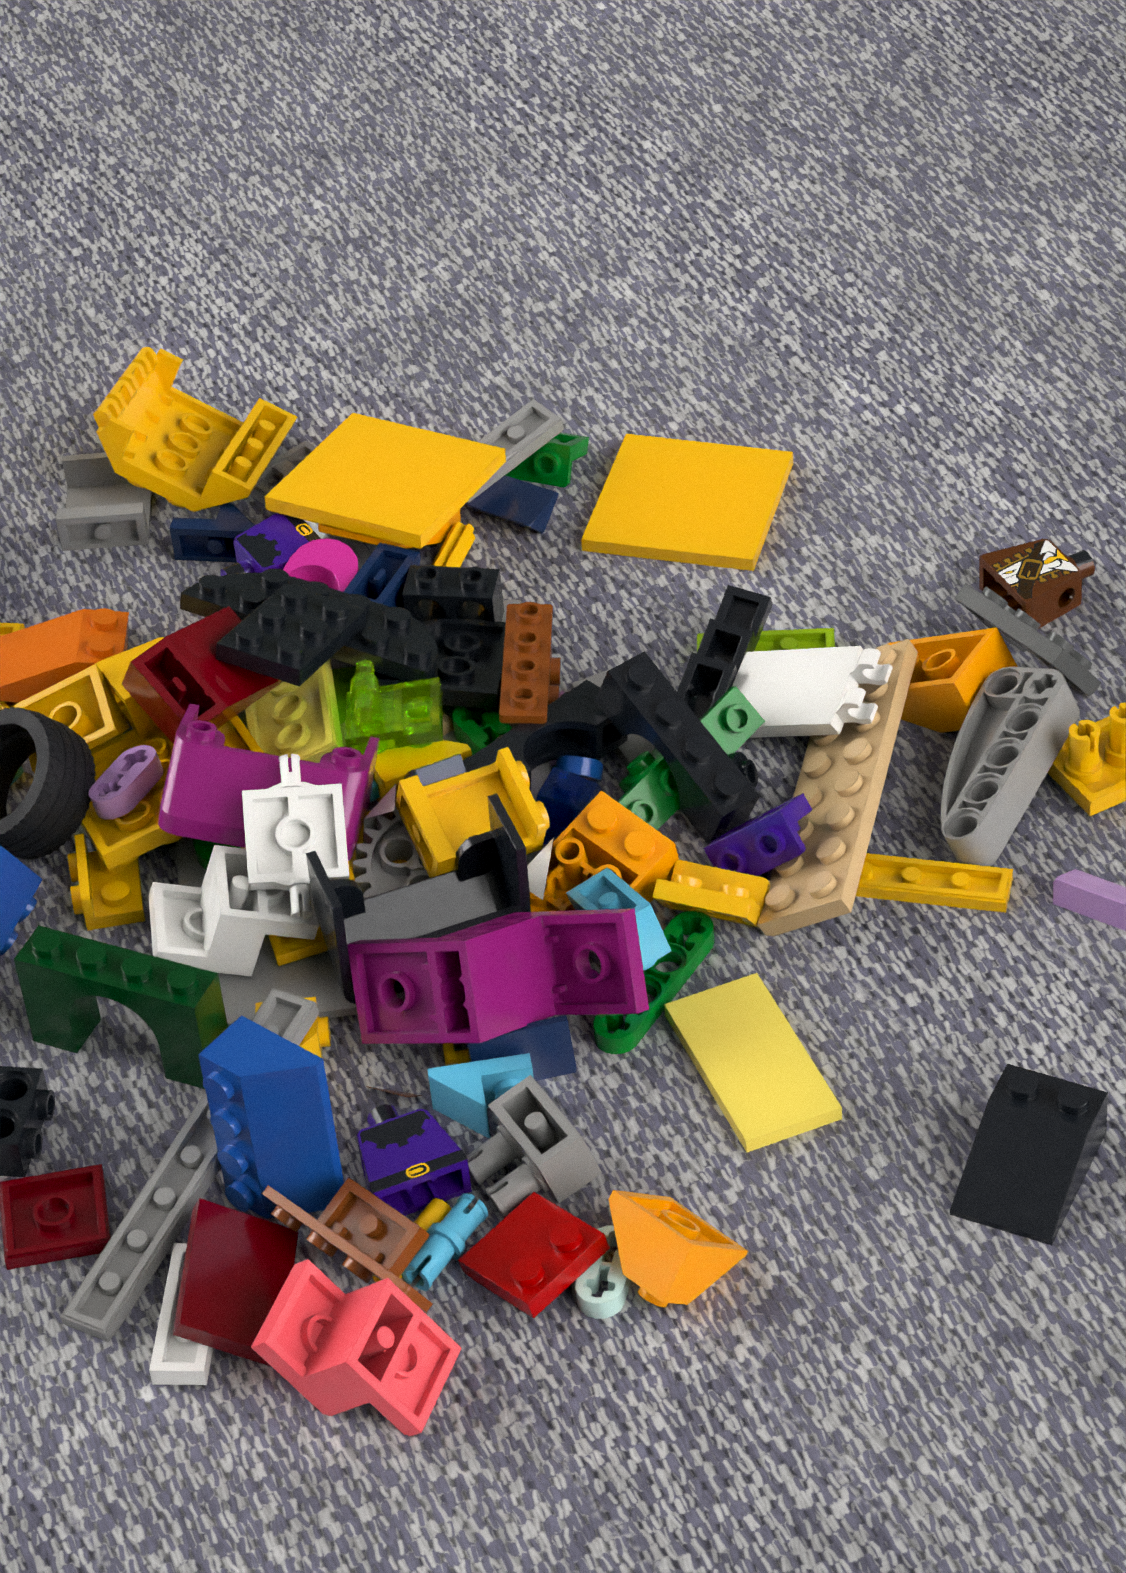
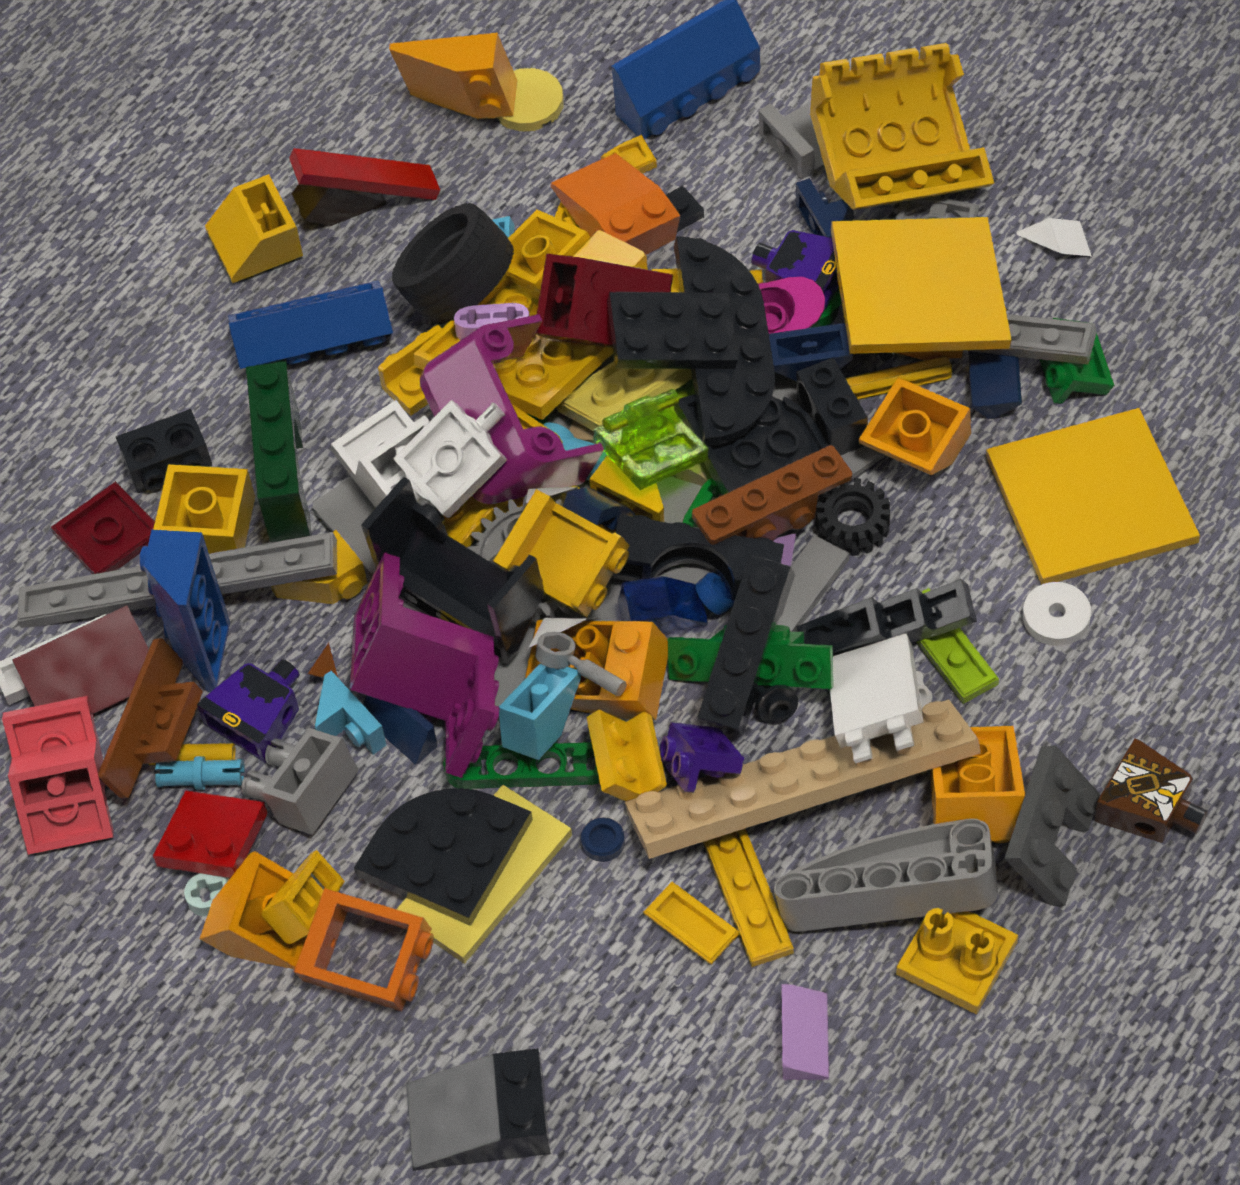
camera: 60 degrees right, 15 degrees up
(125, 1107) = (208, 502): none -> yellow brick
(392, 408) = (1058, 235): none -> white sticker
(529, 553) = (918, 428): none -> light orange slope
(576, 871) = (566, 657): none -> light grey piece
(587, 633) = (857, 497): none -> black tyre
(684, 1200) = (296, 902): none -> yellow slope
(711, 1070) = (445, 849): none -> black plate
(747, 1205) = (325, 932): none -> orange window
(784, 960) = (603, 839): none -> dark blue tile
(794, 569) = (1051, 629): none -> white piece
(930, 930) = (691, 922): none -> yellow tile

